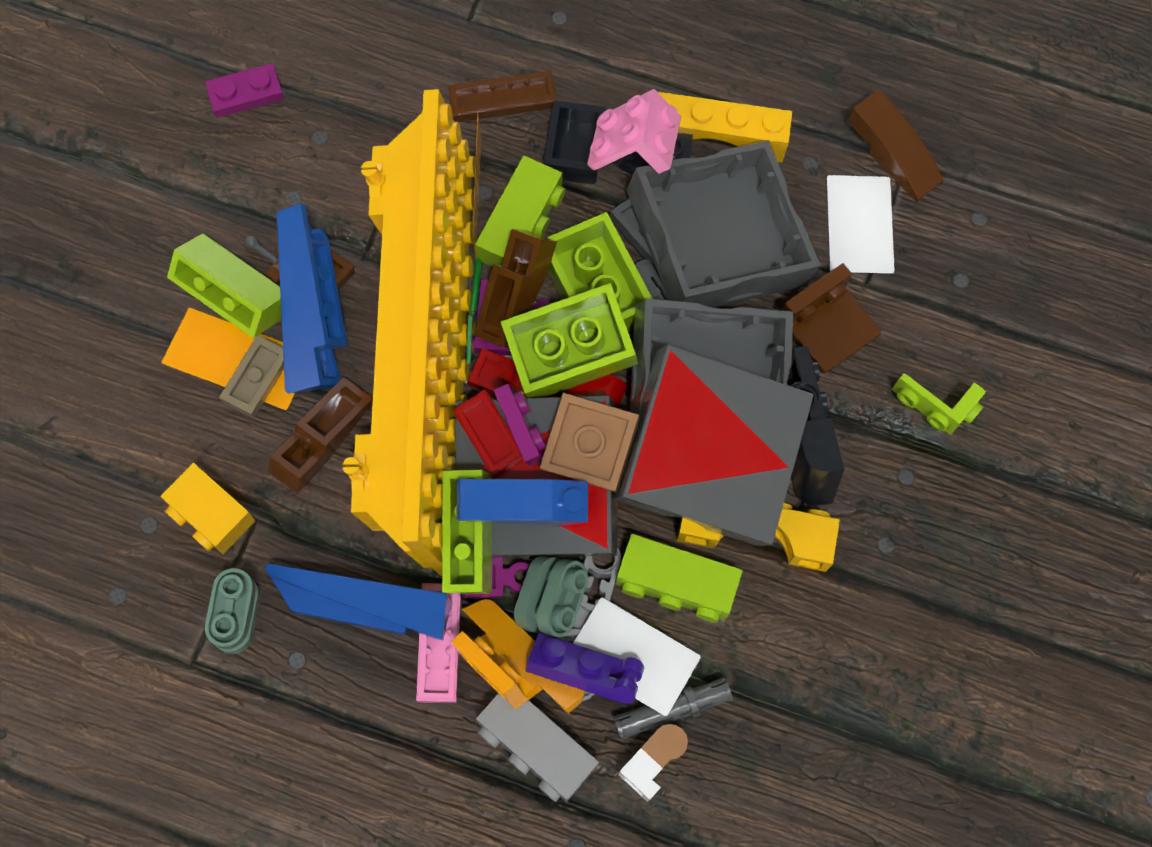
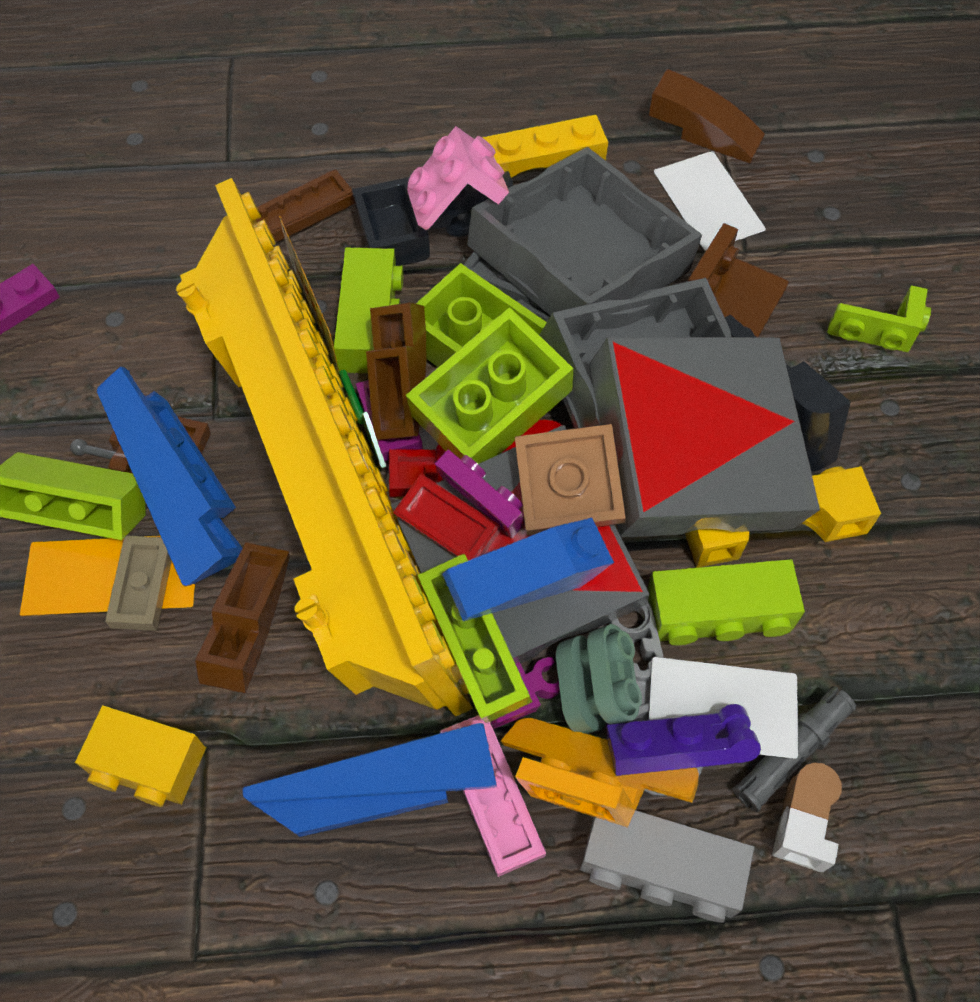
camera: 20 degrees left, 10 degrees down
(232, 611) = (222, 866): sand green brick -> none

